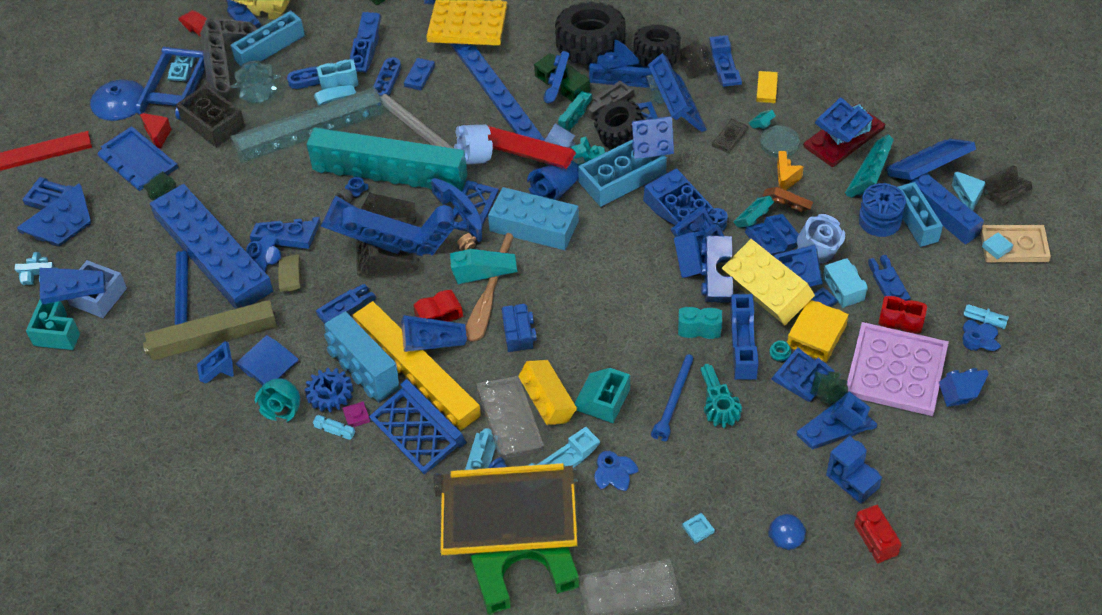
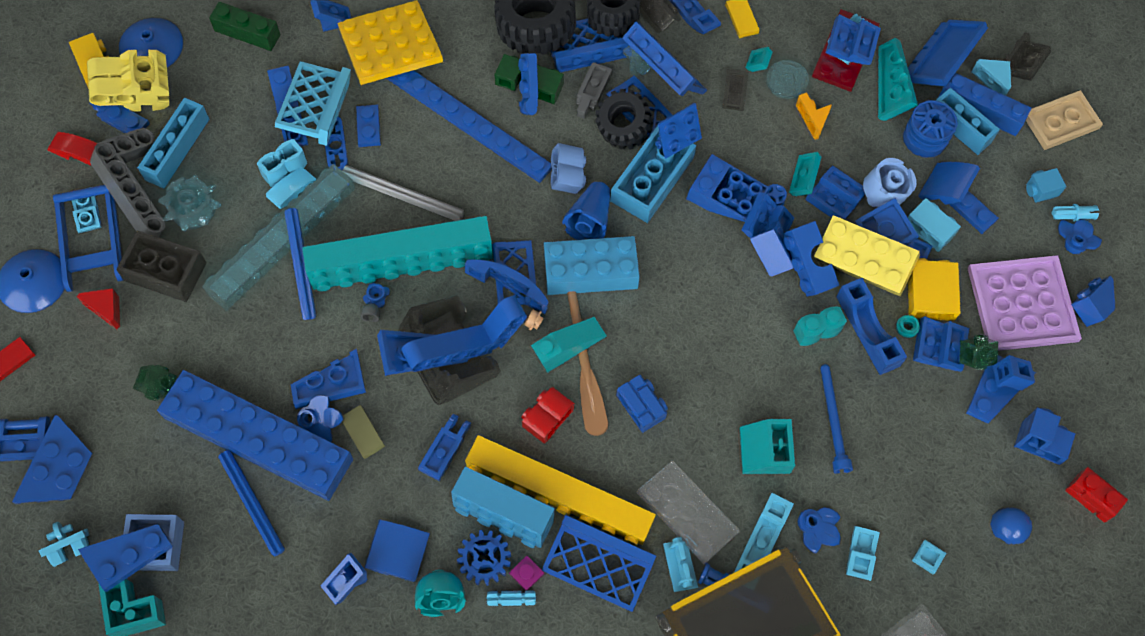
camera: 30 degrees left, 15 degrees up
(135, 158) = (100, 348): blue hinge -> none
(209, 330) = (312, 539): olive brick -> none
(303, 78) = (241, 174): blue plate -> none
(304, 163) = (303, 283): none -> blue axle
(395, 49) = (330, 109): none -> medium azure fence
(431, 334) = (559, 449): blue wing -> none
(474, 142) = (484, 198): light blue brick -> none
(531, 148) = (542, 183): red tile -> none
(547, 392) = (712, 468): yellow brick -> none
(575, 111) = (563, 115): teal hinge -> none
(586, 151) = (608, 170): teal hips -> none
(620, 57) = (582, 37): blue slope -> none
(641, 503) = (862, 553): none -> medium azure slope
(719, 398) = (879, 403): teal gear -> none
(784, 197) = (829, 149): dark orange wing -> none
(877, 254) = (949, 182): none -> blue slope
(902, 314) = (1005, 242): red brick -> none
(968, 286) = (1045, 185): none -> dark azure brick
(997, 245) = (1053, 130): medium azure tile -> none

